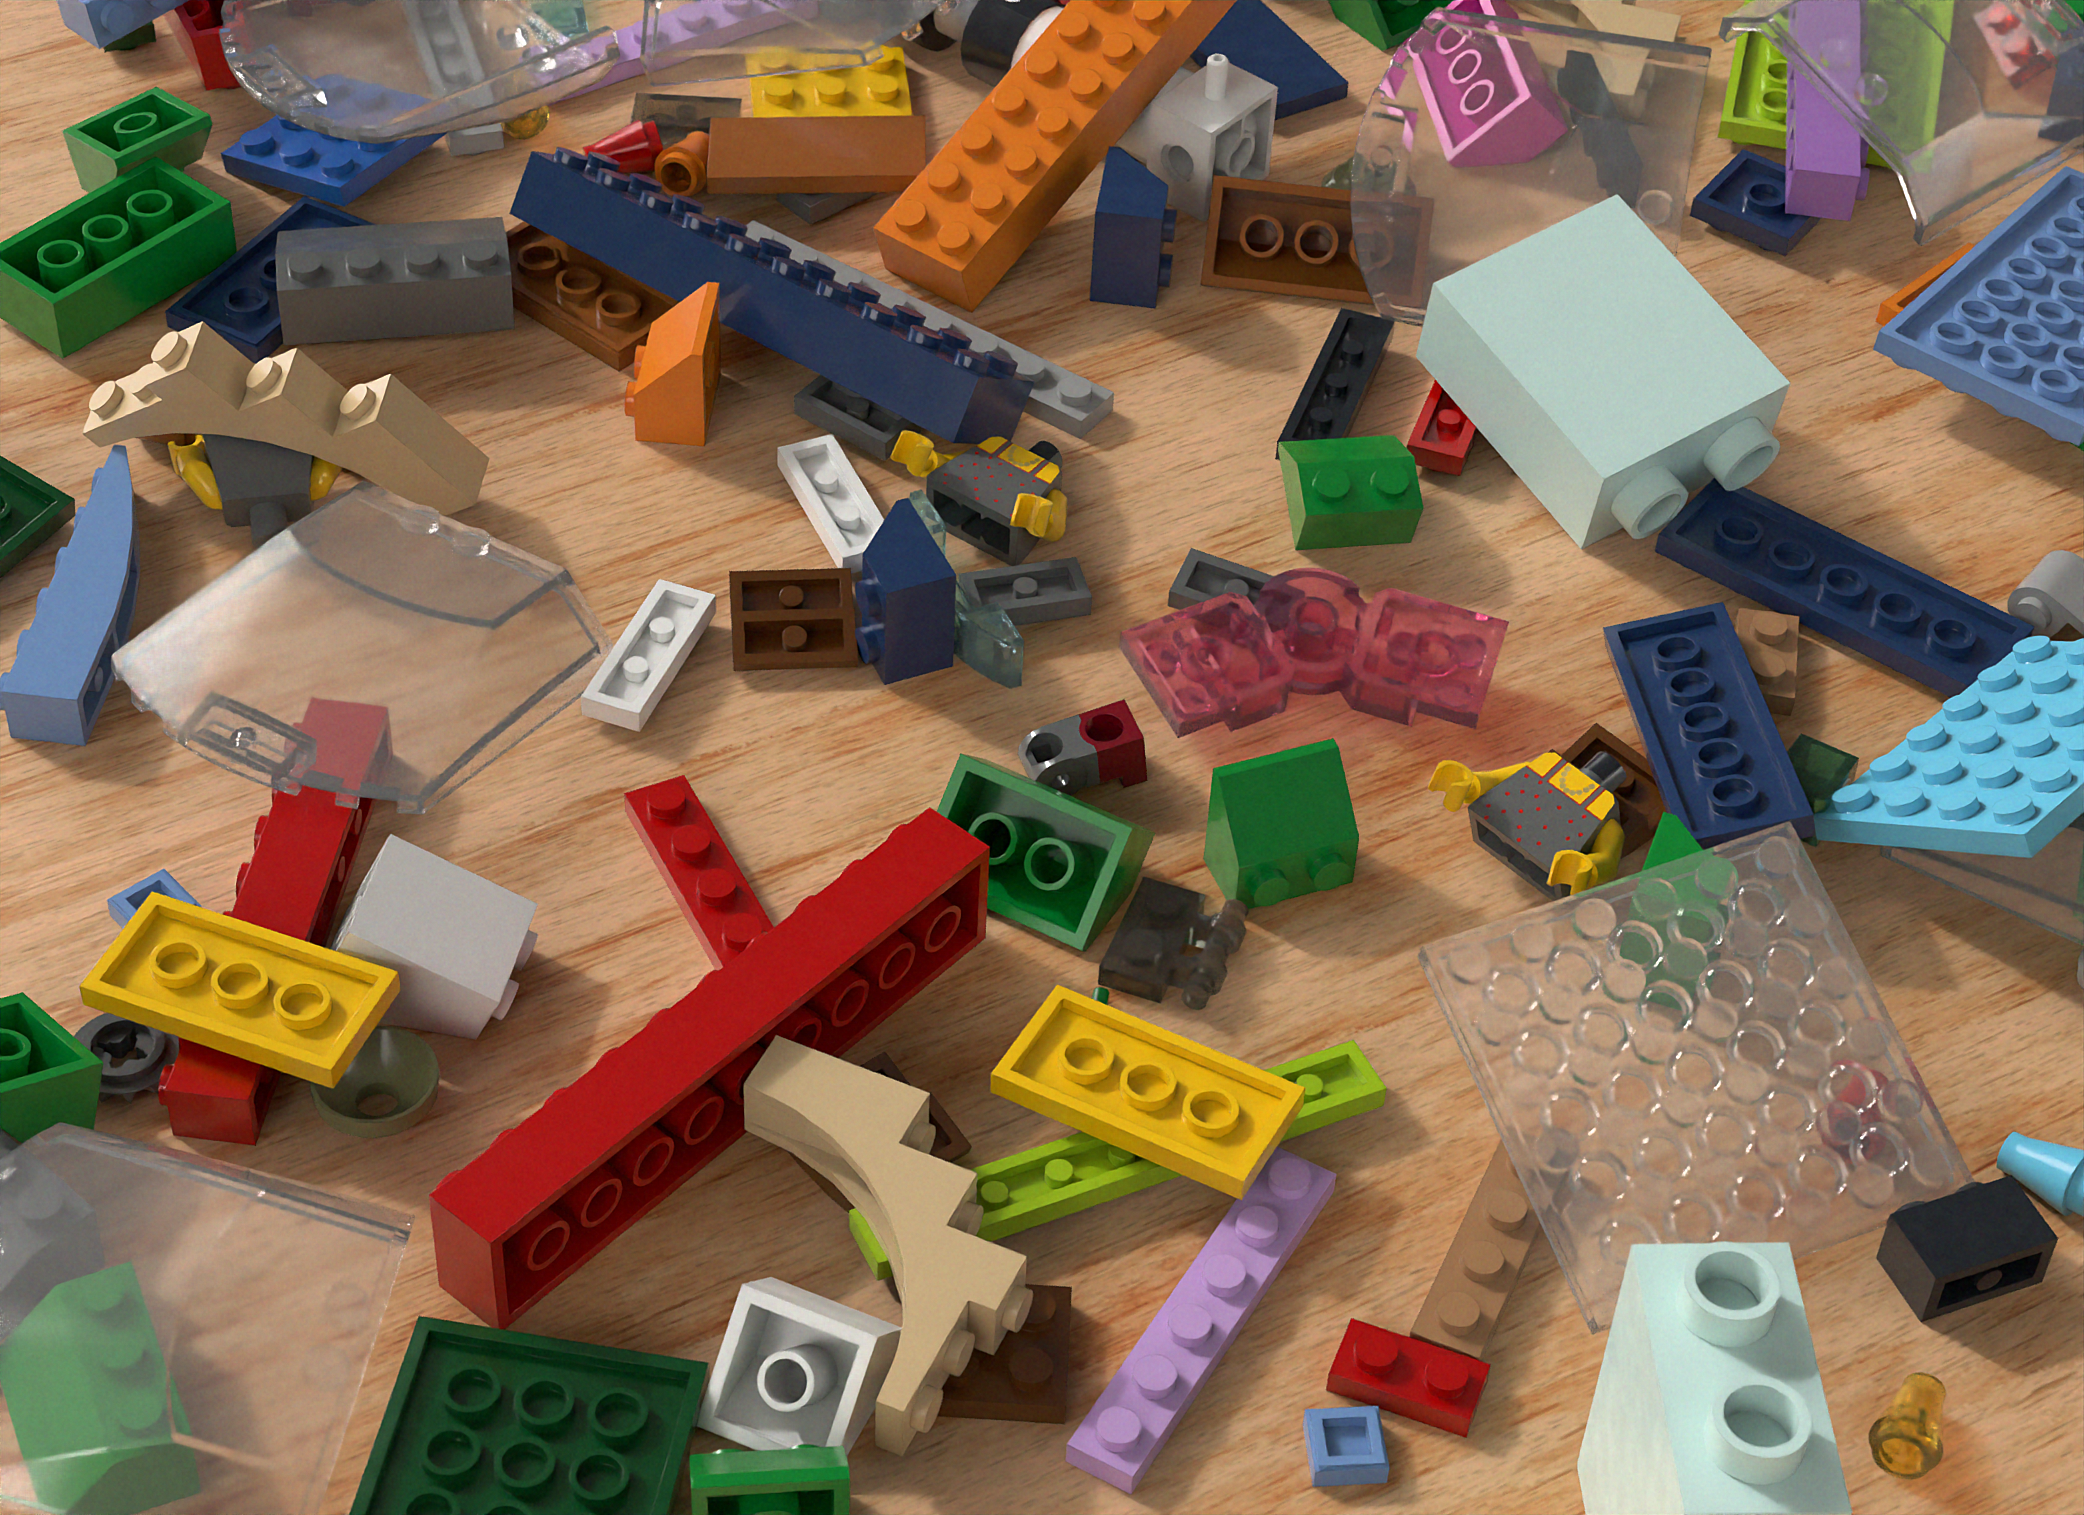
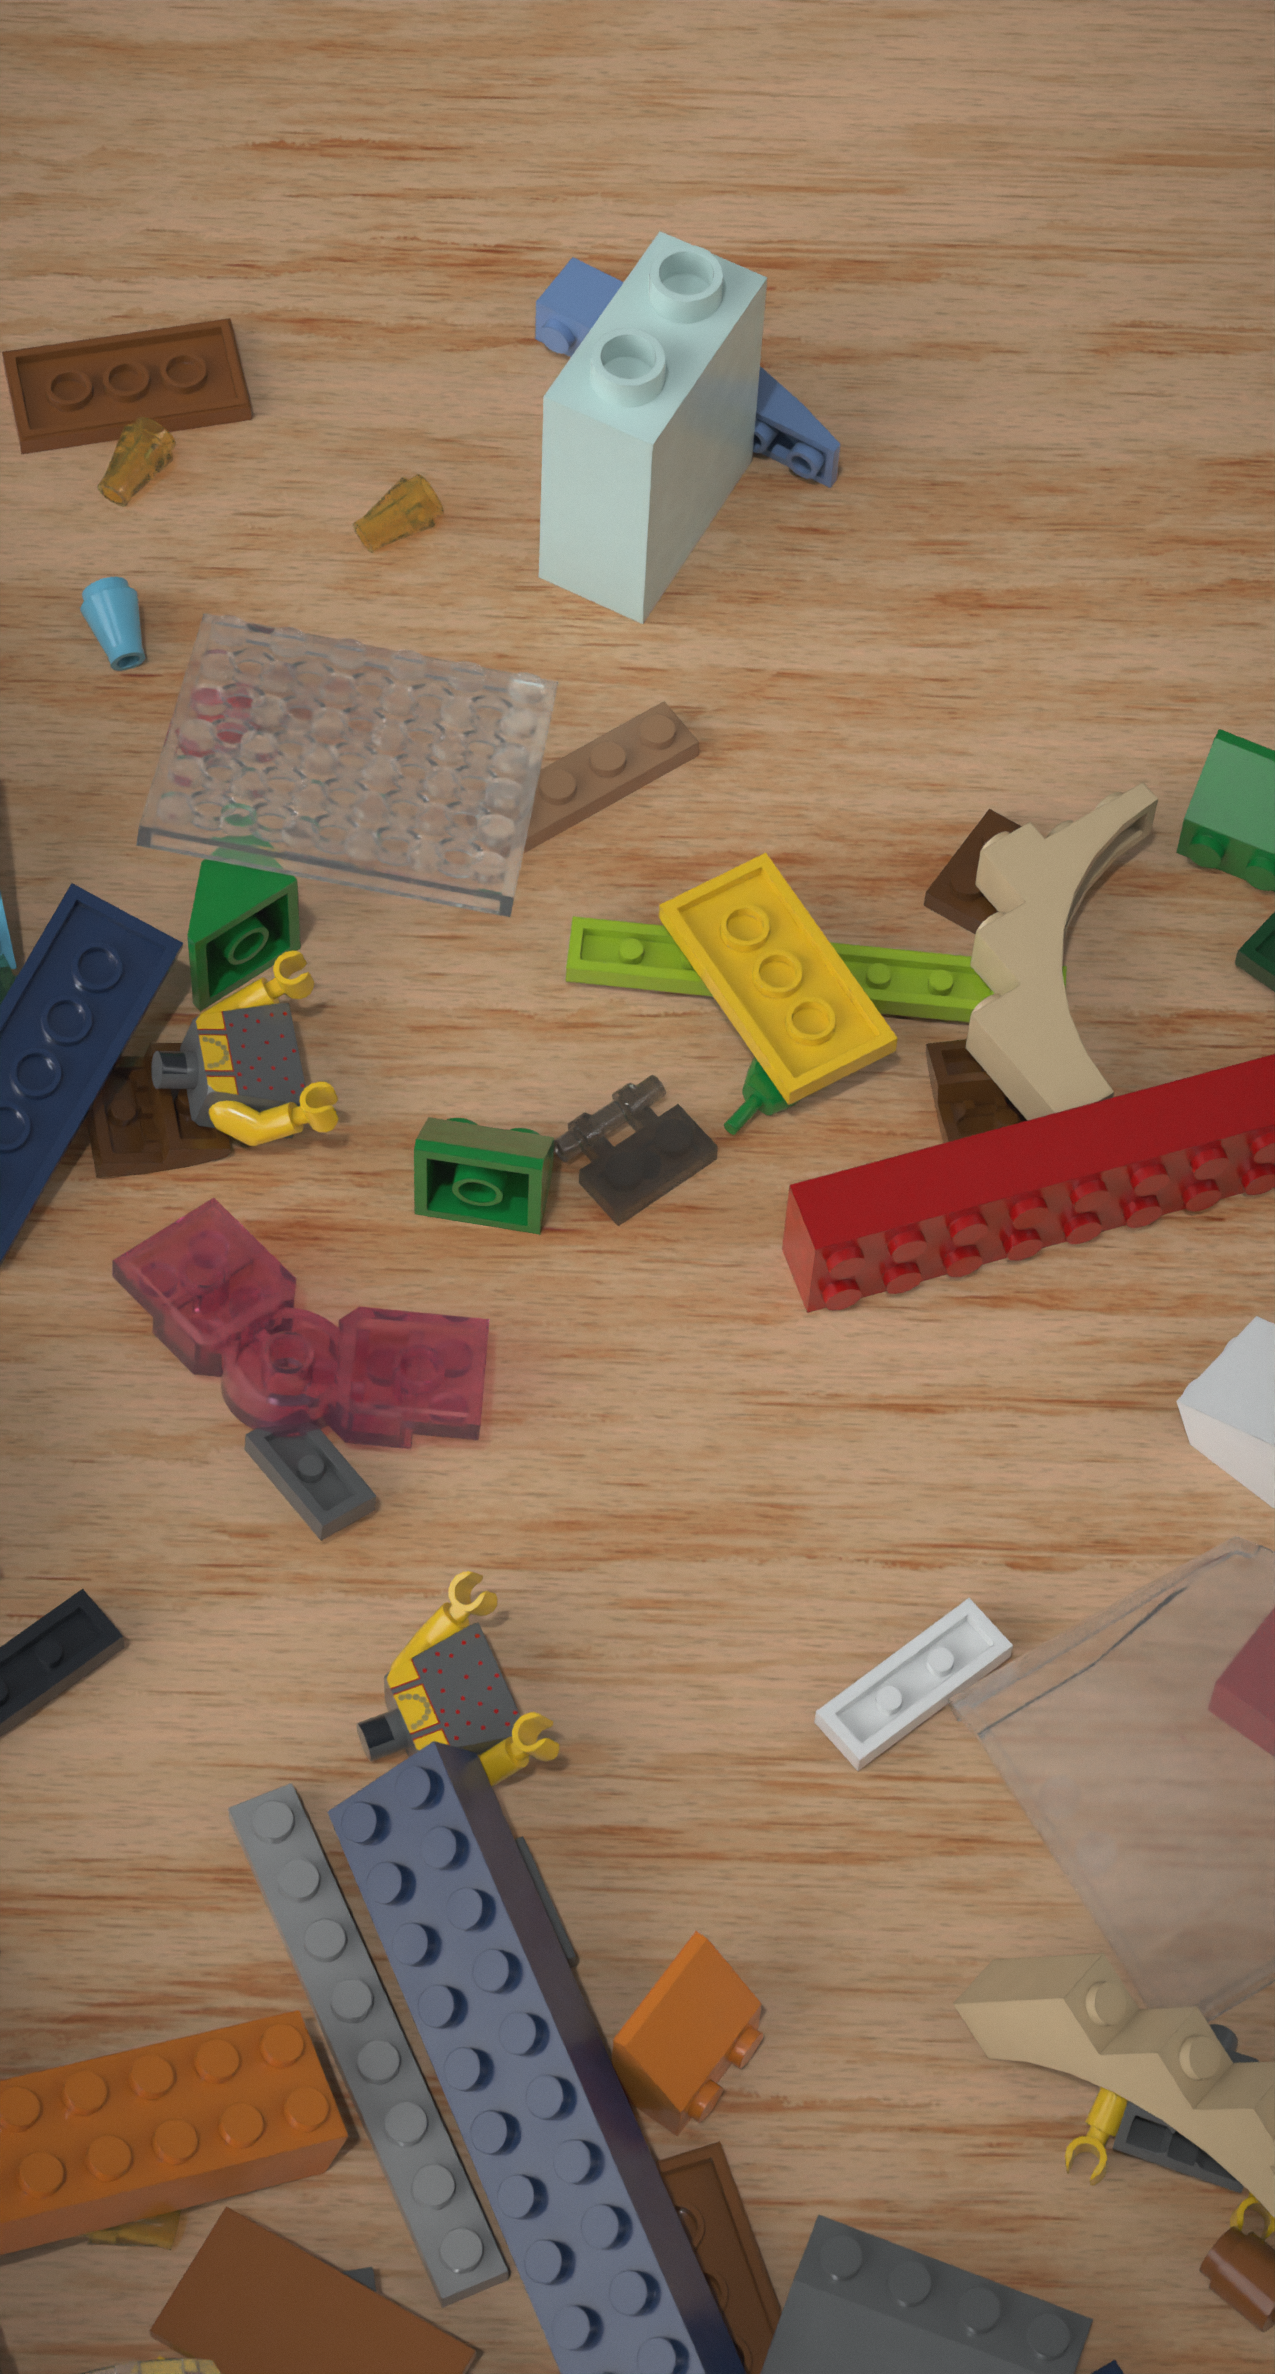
camera: 150 degrees left, 15 degrees up
(697, 868) = (995, 1415): red plate -> none
(792, 619) = (747, 1670): reddish brown slope -> none
(796, 1370) = (1166, 918): white slope -> none
(831, 497) = (616, 1793): white plate -> none
(905, 599) = (656, 1580): dark blue slope -> none
(981, 634) = (573, 1677): clear light blue slope -> none
(1032, 590) = (526, 1581): dark grey plate -> none
(1051, 855) = (696, 1279): green slope -> none
(1086, 750) = (585, 1357): leg -> none
(1131, 234) = (68, 1986): dark blue slope -> none
(1199, 1321) = (863, 822): lavender plate -> none
(1345, 1446) = (801, 702): medium blue tile -> none
(1350, 491) = (106, 1526): green slope -> none
(1408, 1377) = (722, 724): red plate -> none
(1966, 1248) = (241, 585): black brick -> none

